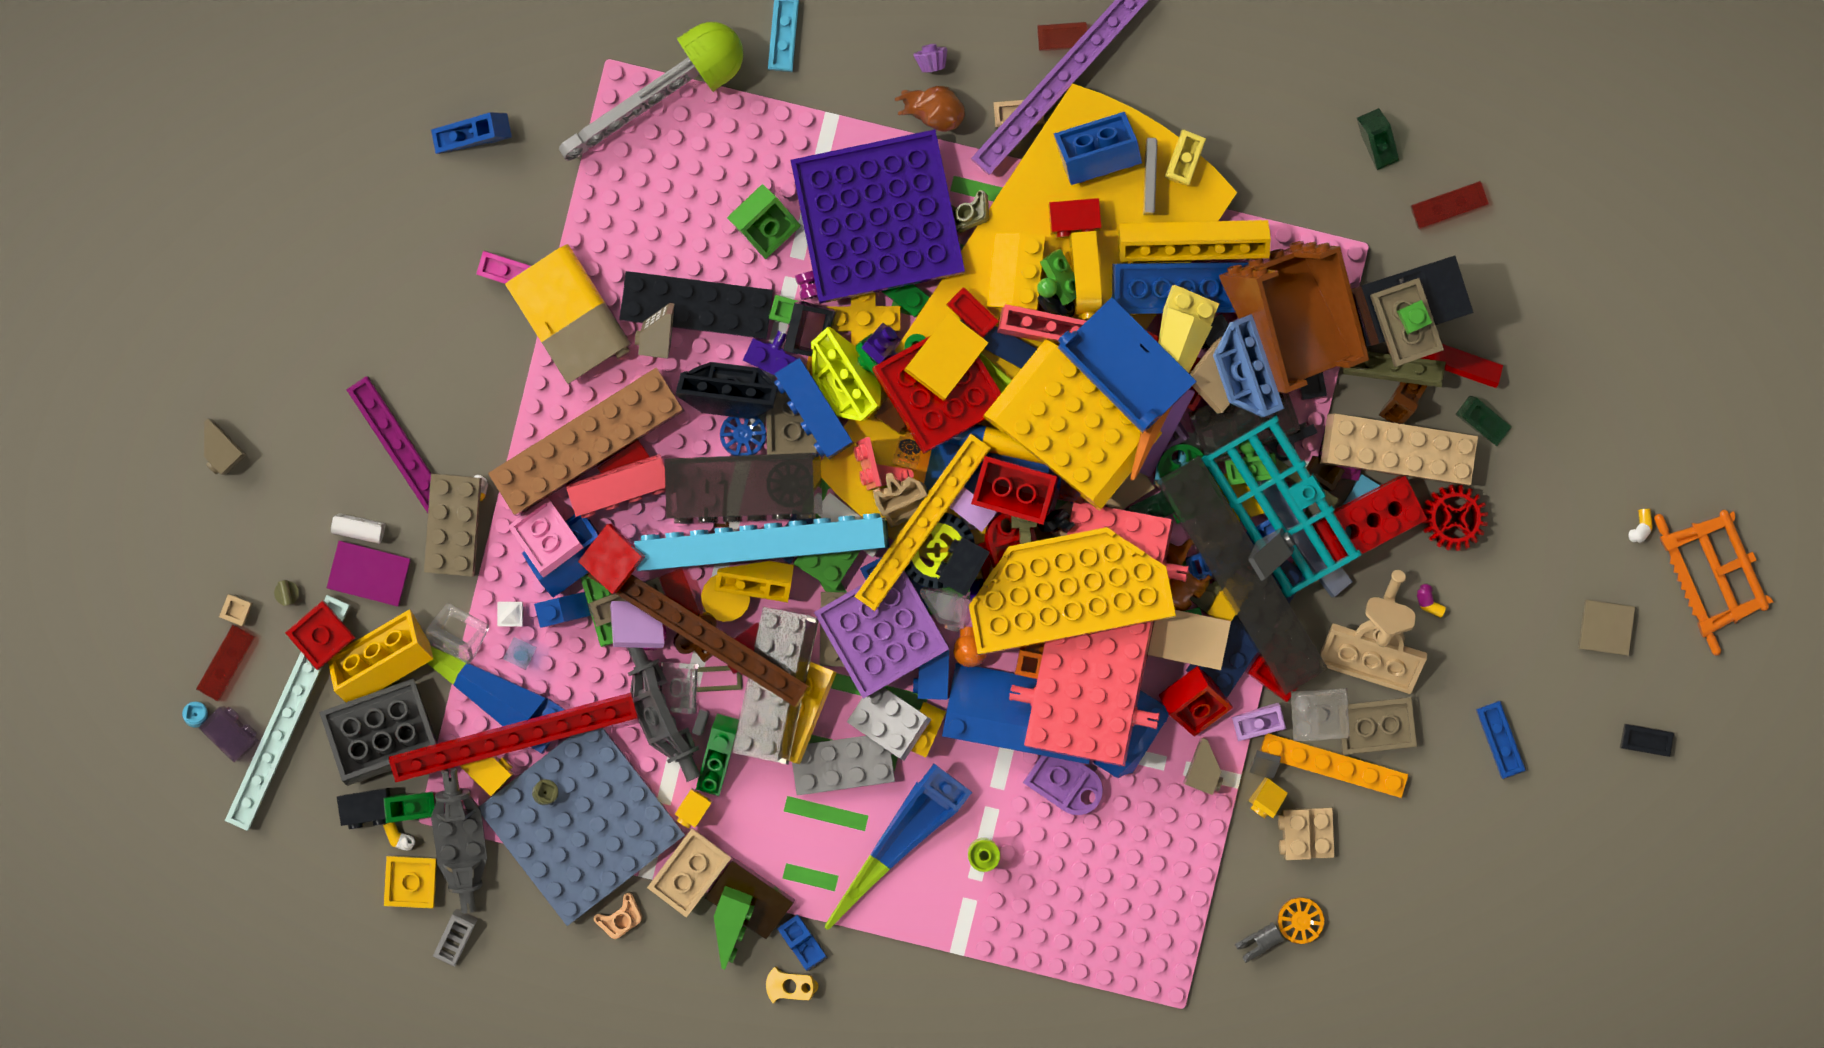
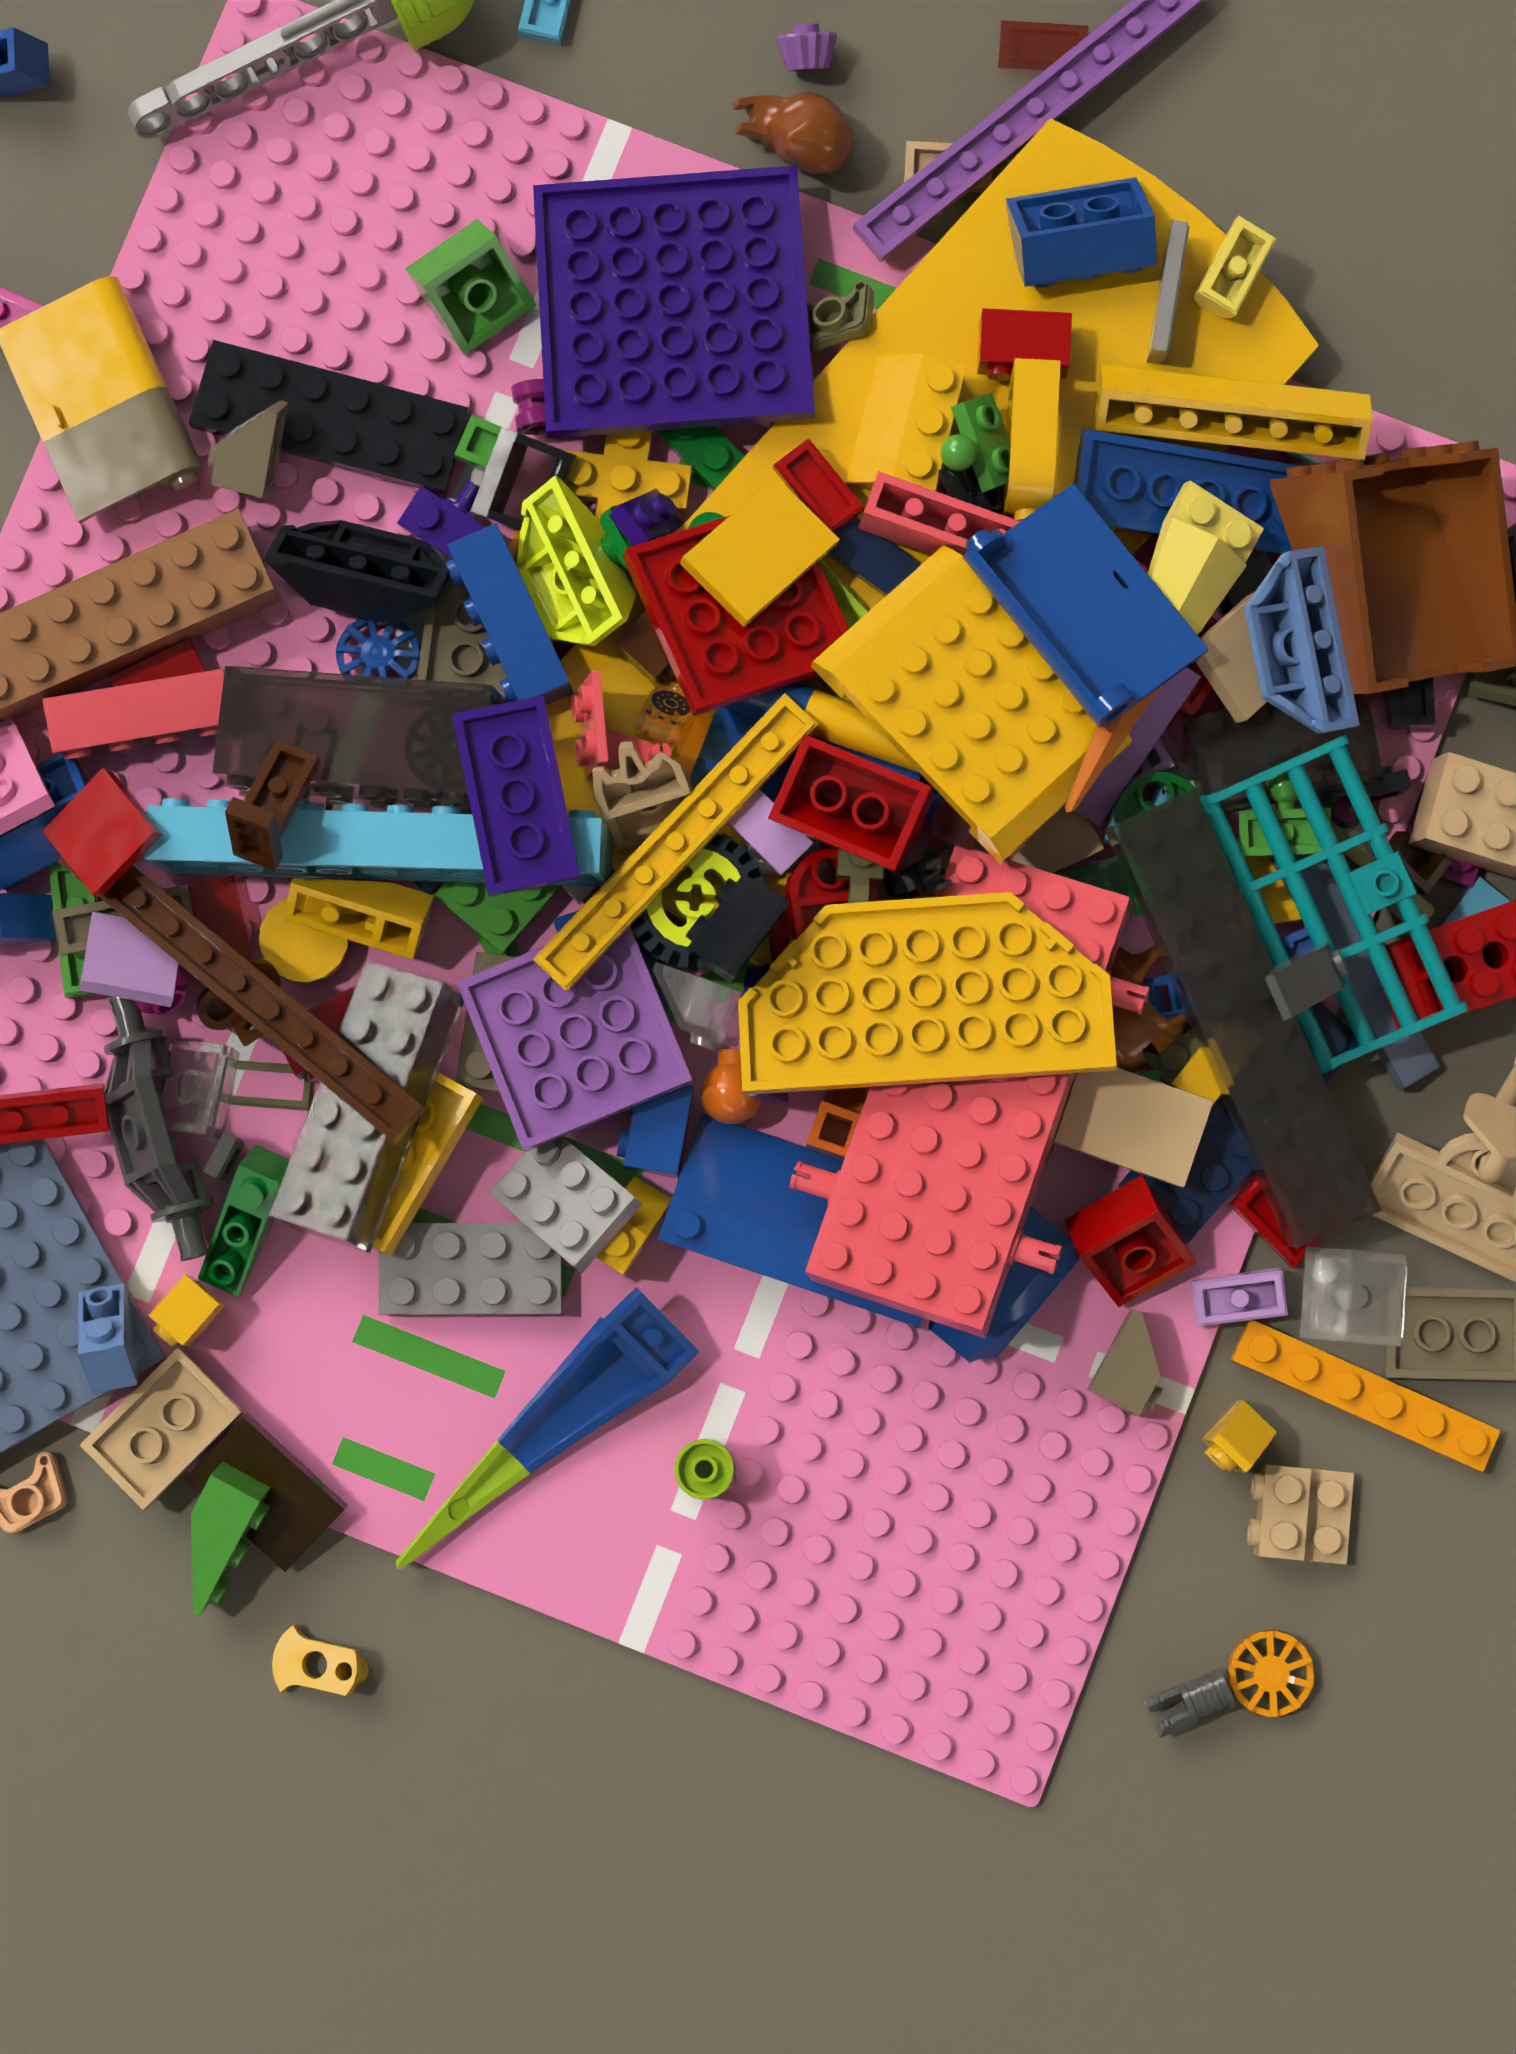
camera: 10 degrees right, 5 degrees down
(654, 829) = (106, 1338): none -> medium blue slope
(699, 544) = (268, 807): none -> reddish brown bracket
(802, 942) = (350, 1588): blue slope -> none
(835, 513) = (516, 796): none -> dark purple plate
(1064, 783) = (869, 1358): medium lavender tile -> none
(1265, 764) = (1241, 1376): dark grey tile -> none

